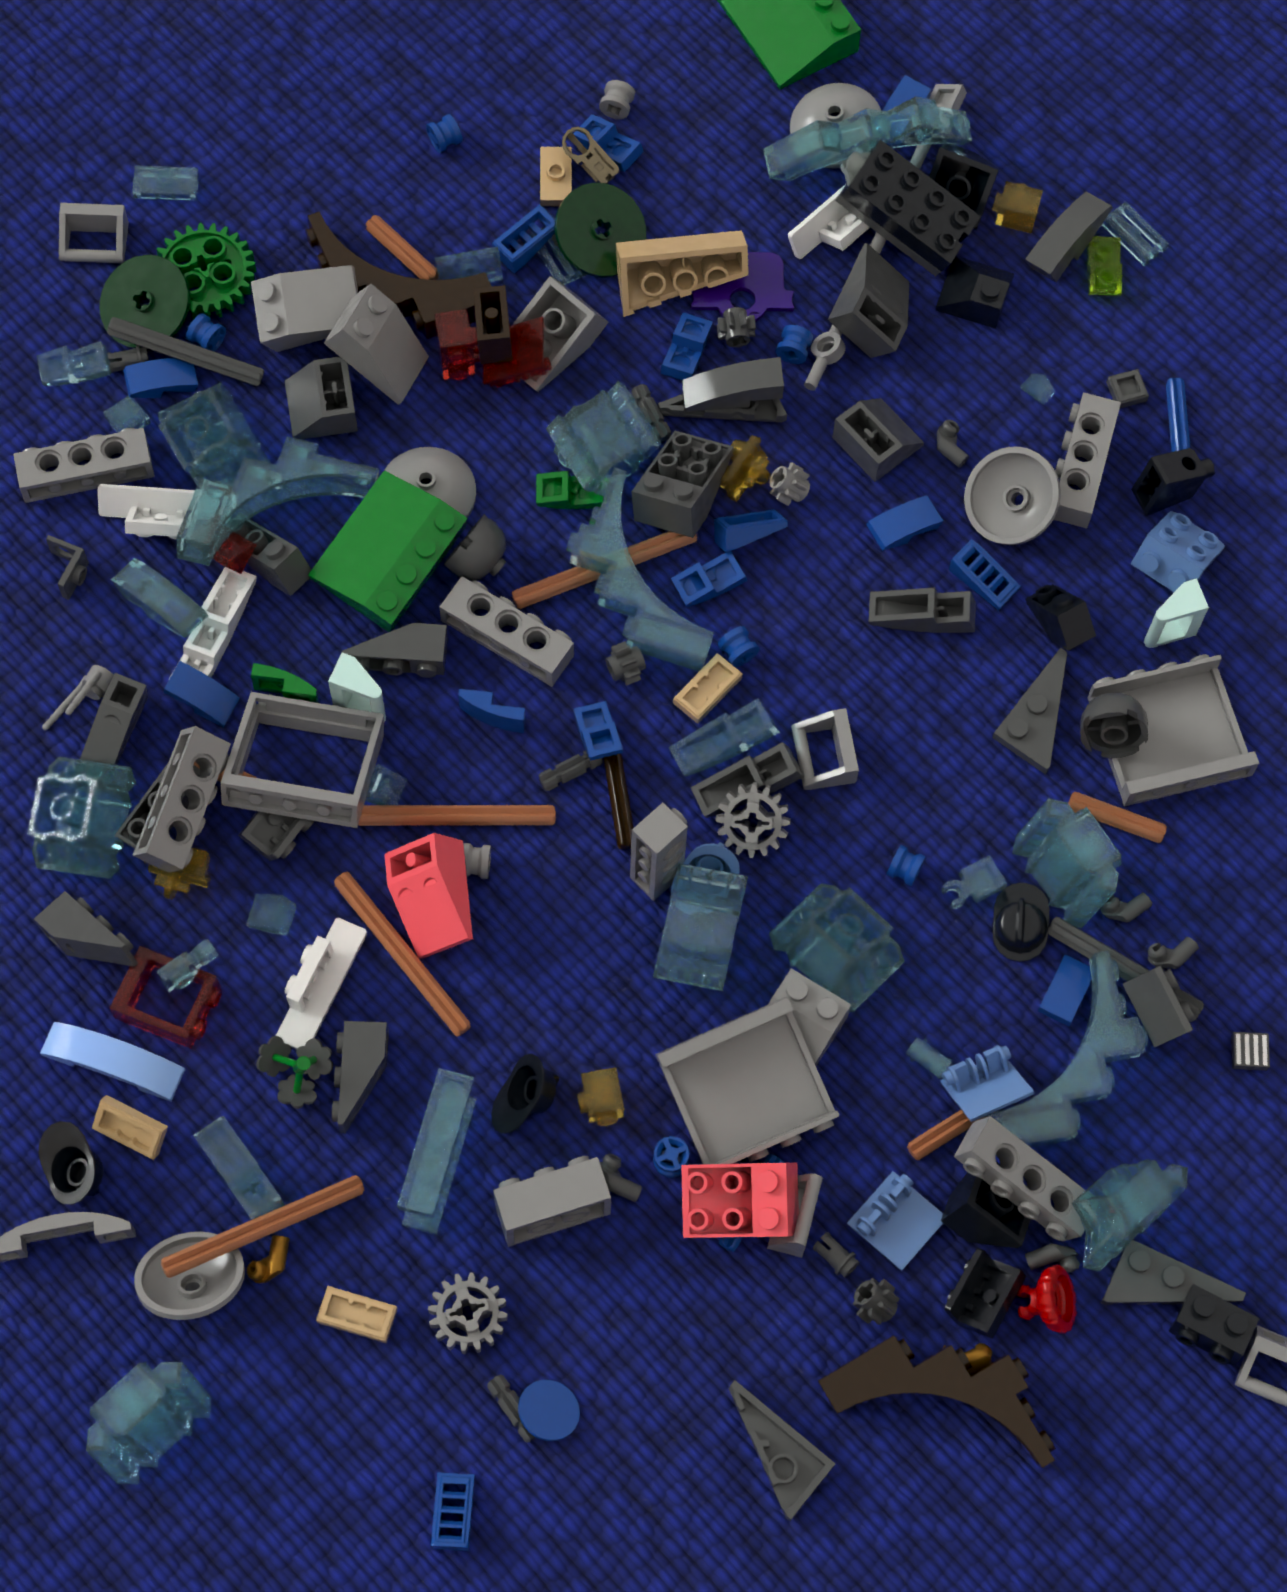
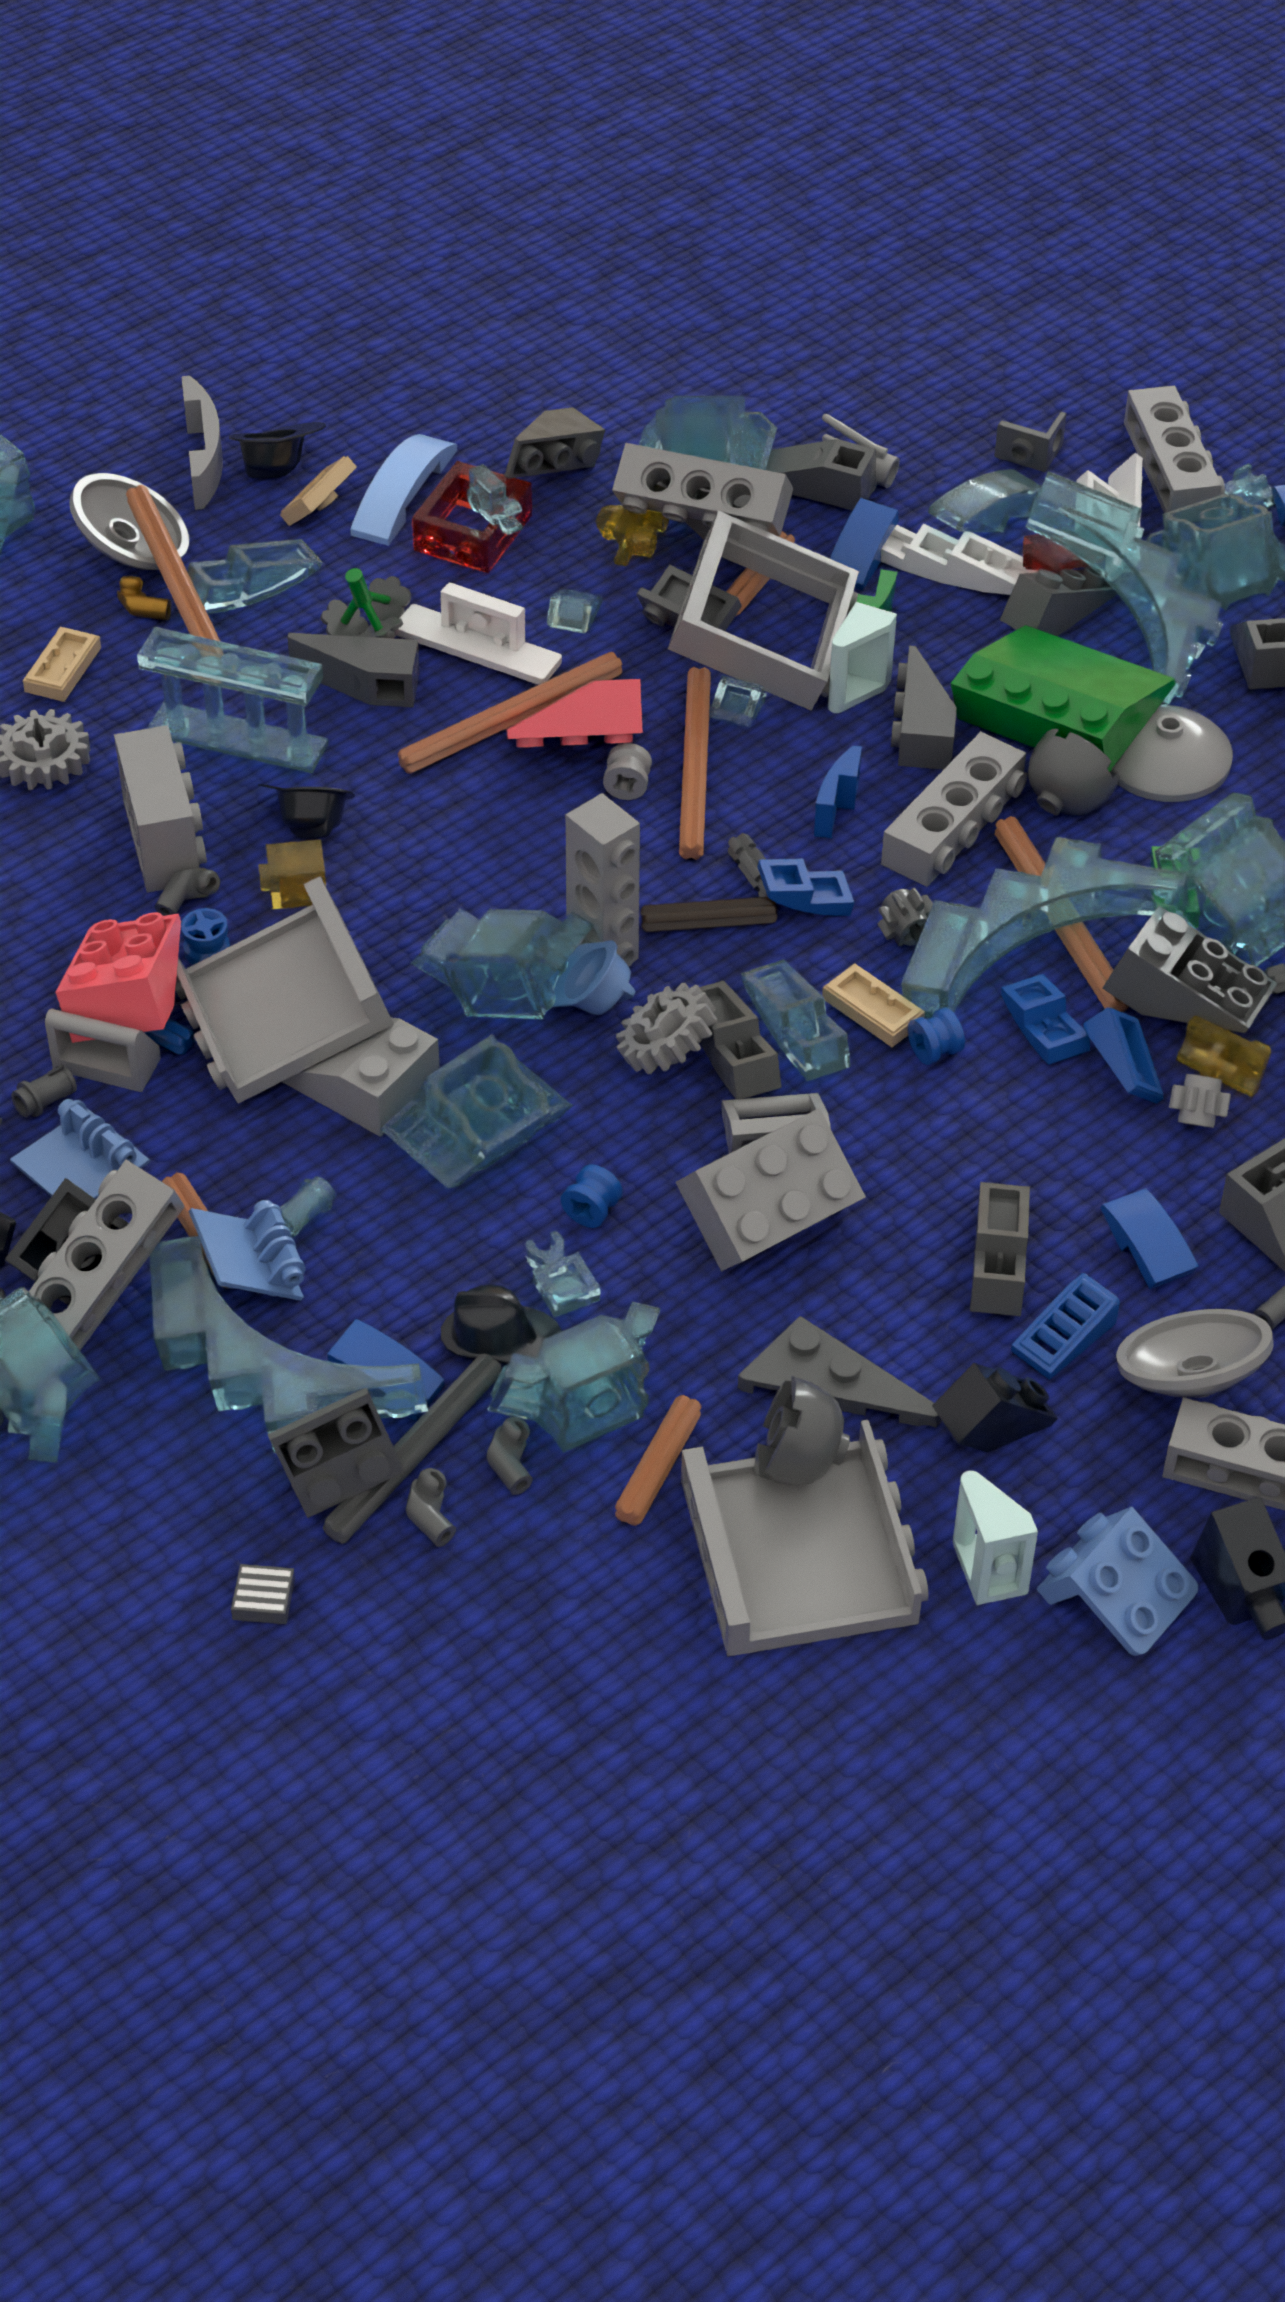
camera: 95 degrees right, 20 degrees down
(907, 744) = (770, 1189): none -> light grey brick

